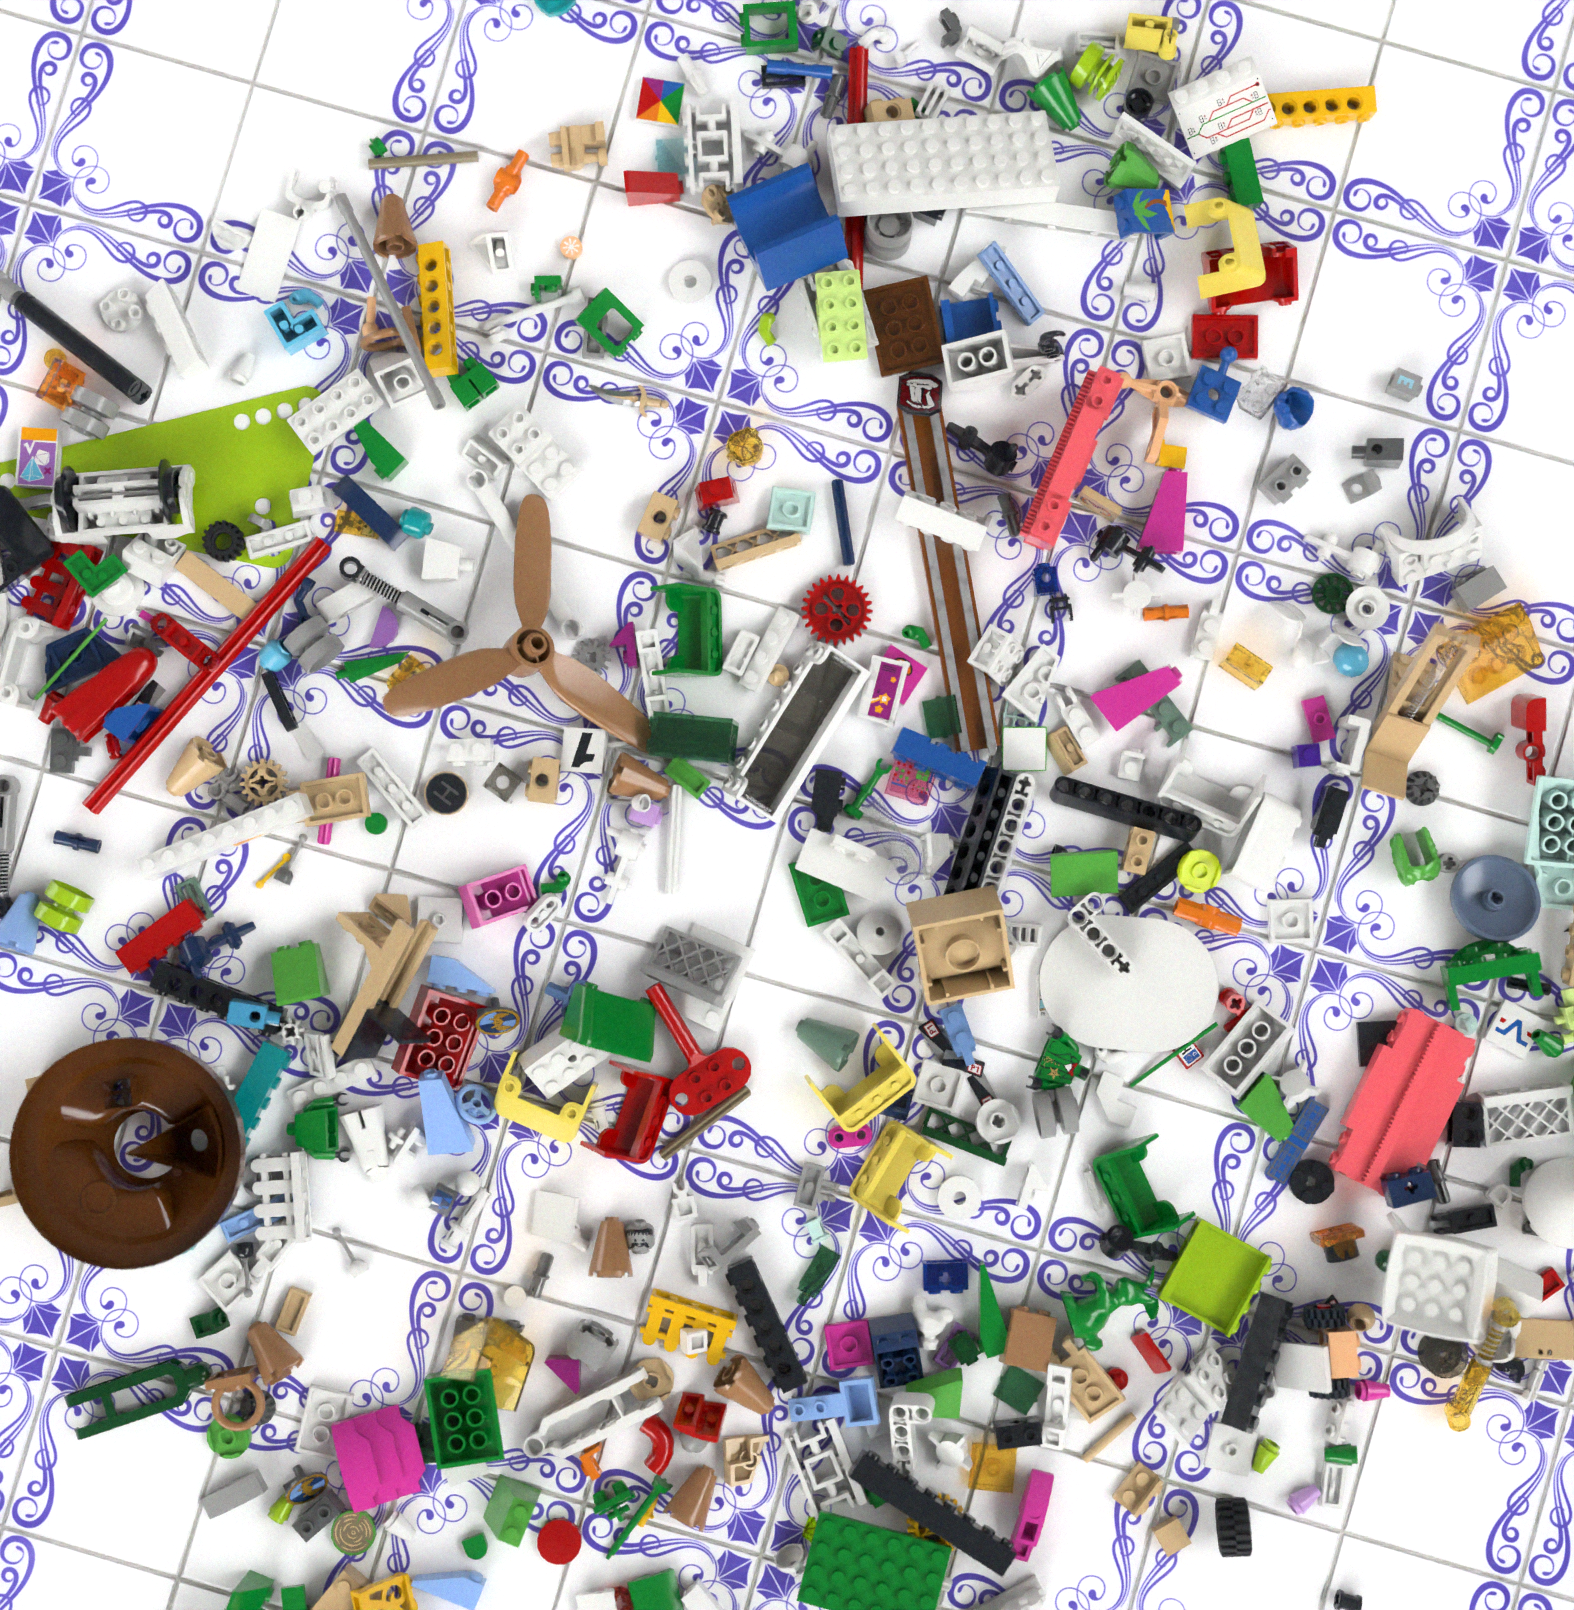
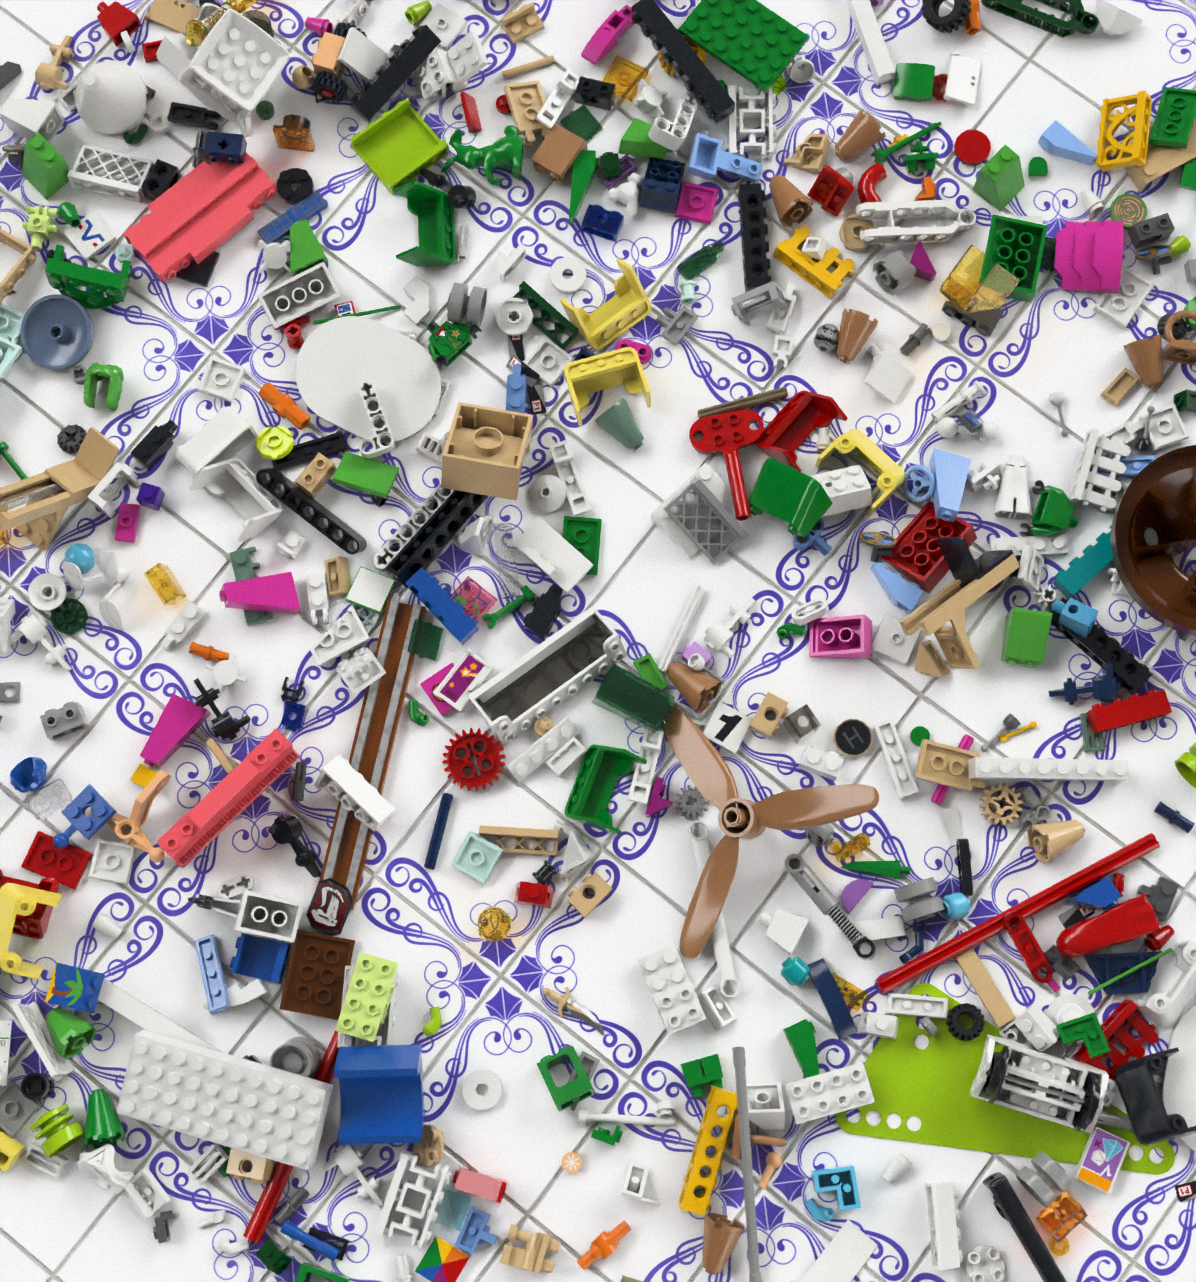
camera: 155 degrees left, 10 degrees down
(639, 144) = (475, 1231): none -> medium blue hinge

